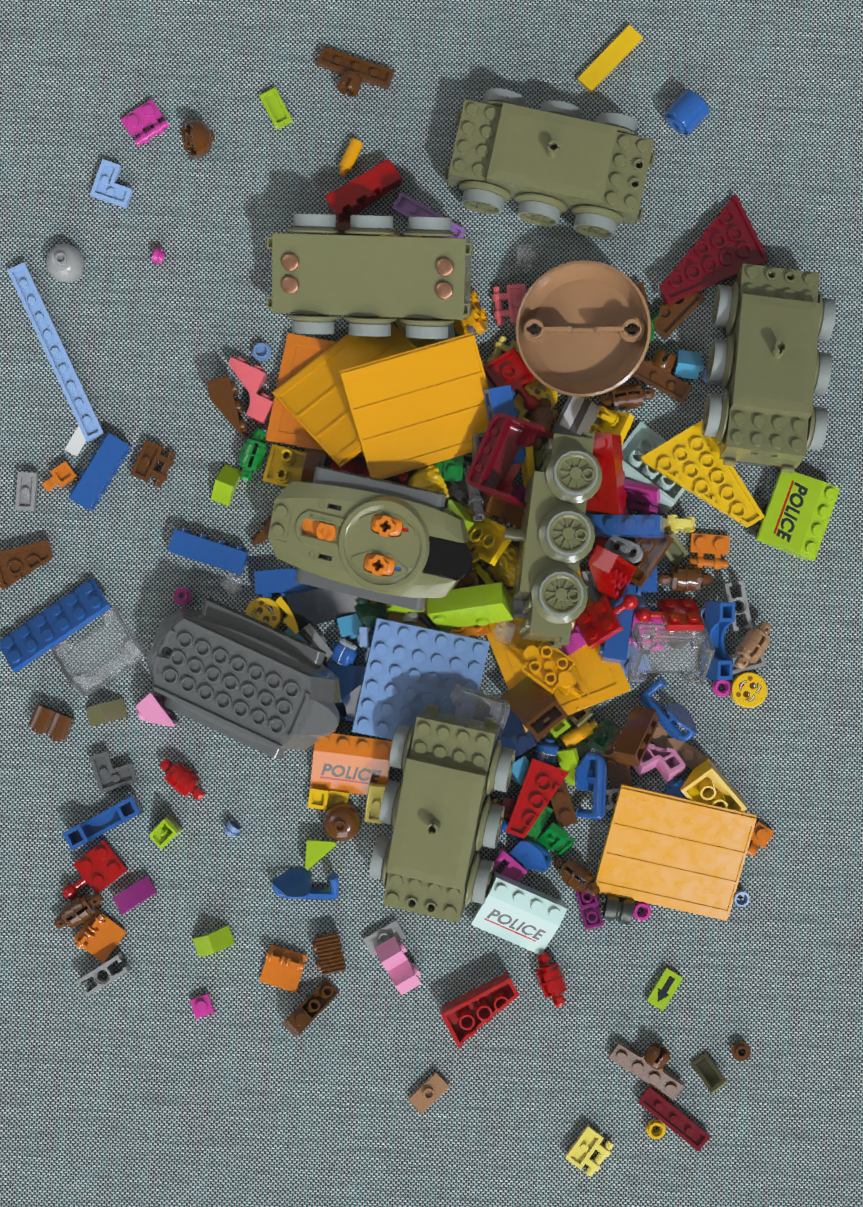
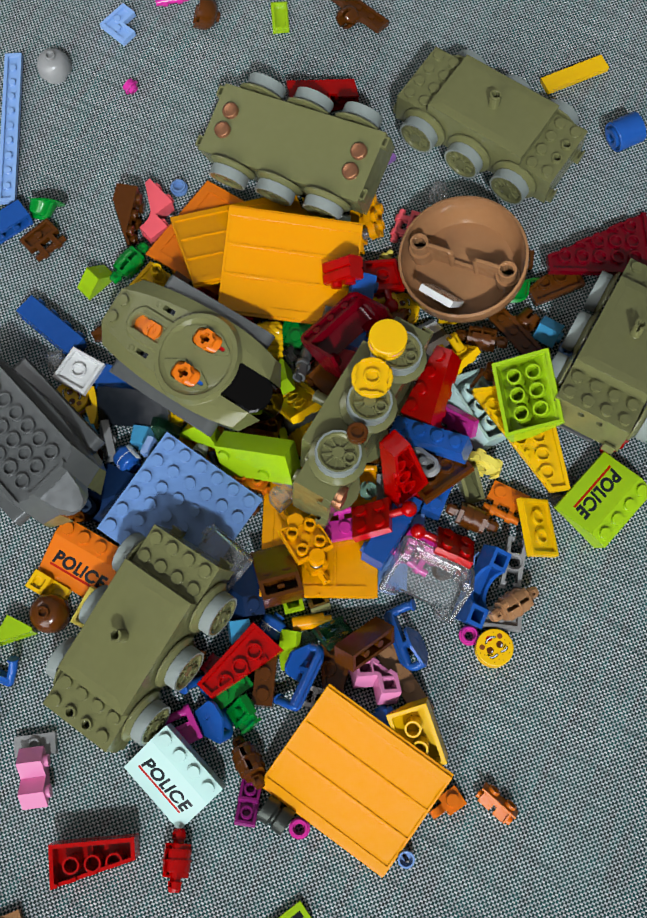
camera: 25 degrees right, 15 degrees down
(136, 431) = (43, 207): none -> green piece
(187, 596) = (13, 360): dark pink plate -> none
(260, 588) = (79, 371): none -> white tile
(350, 156) = (324, 69): light orange cylinder -> none
(478, 395) = (342, 271): none -> red brick
(562, 469) = (387, 339): none -> yellow head
(562, 511) = (371, 377): none -> yellow tile
(571, 570) = (357, 433): none -> reddish brown tile
(575, 373) = (441, 295): none -> white tile
(649, 430) = (487, 372): none -> reddish brown plant
(697, 449) = (527, 395): none -> lime slope
(747, 564) = (537, 527): none -> yellow tile
(808, 823) = (504, 808): none -> orange hinge

